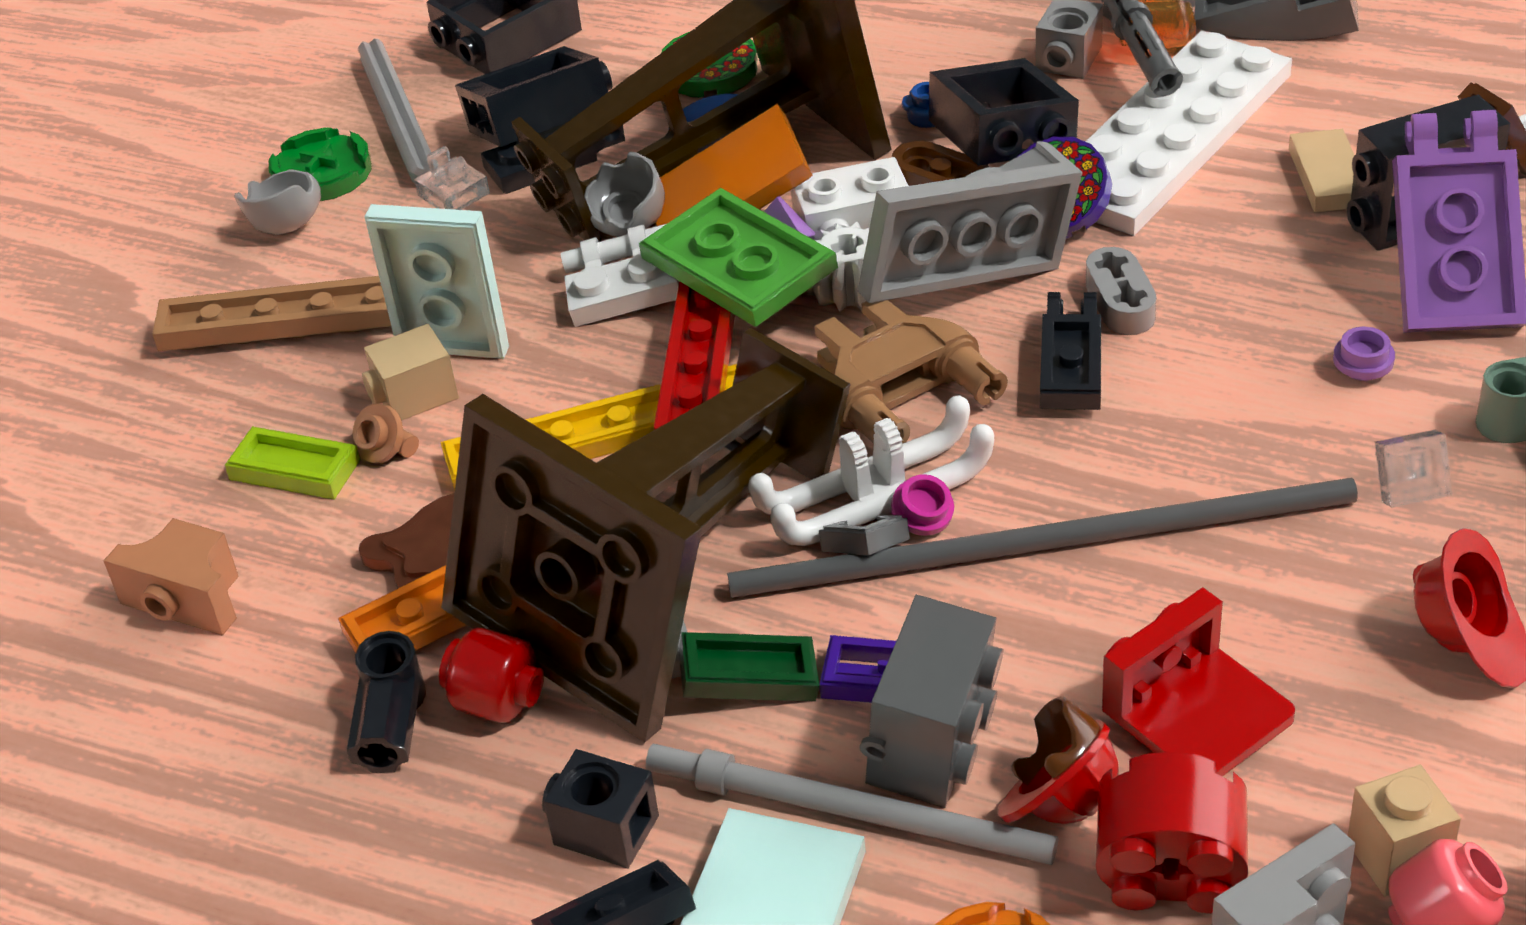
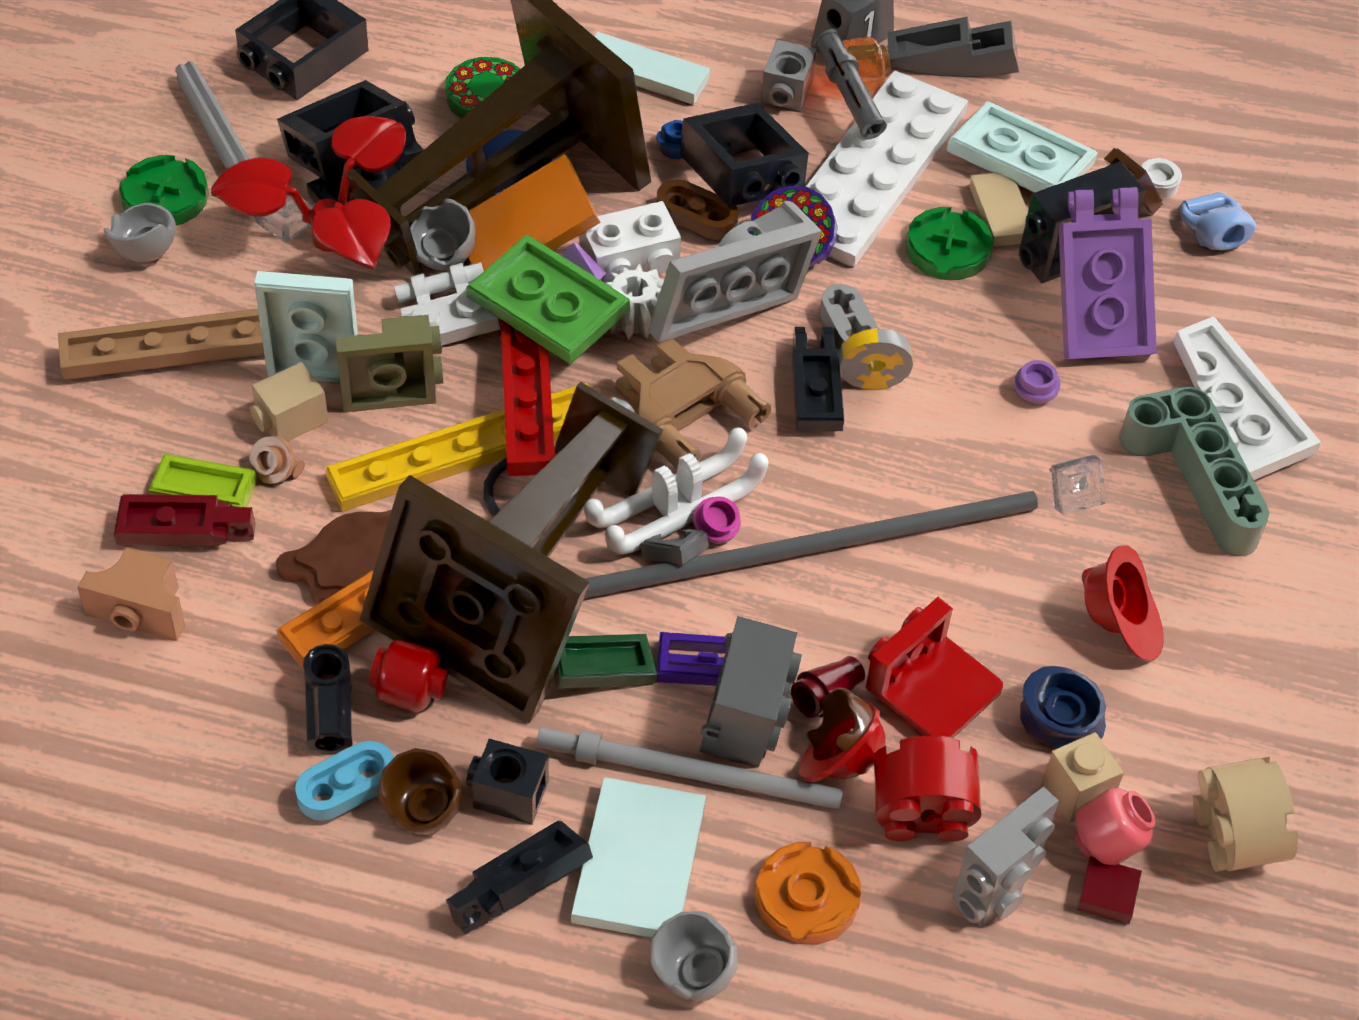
camera: 15 degrees left, 10 degrees up
(256, 498) = (181, 520): none -> dark red hinge
(388, 801) = (343, 780): none -> medium azure plate
(478, 814) = (420, 791): none -> reddish brown hair
(501, 181) = (348, 229): none -> red plant
(533, 327) = (390, 366): none -> olive plate
(914, 39) = (659, 70): none -> light aqua tile
(1027, 697) = (818, 682): none -> dark red cone
(1147, 302) = (875, 359): none -> piece
(1258, 207) = (949, 243): none -> green tile
(1340, 100) = (1020, 149): none -> light aqua tile
(1376, 734) = (1061, 706): none -> dark blue piece

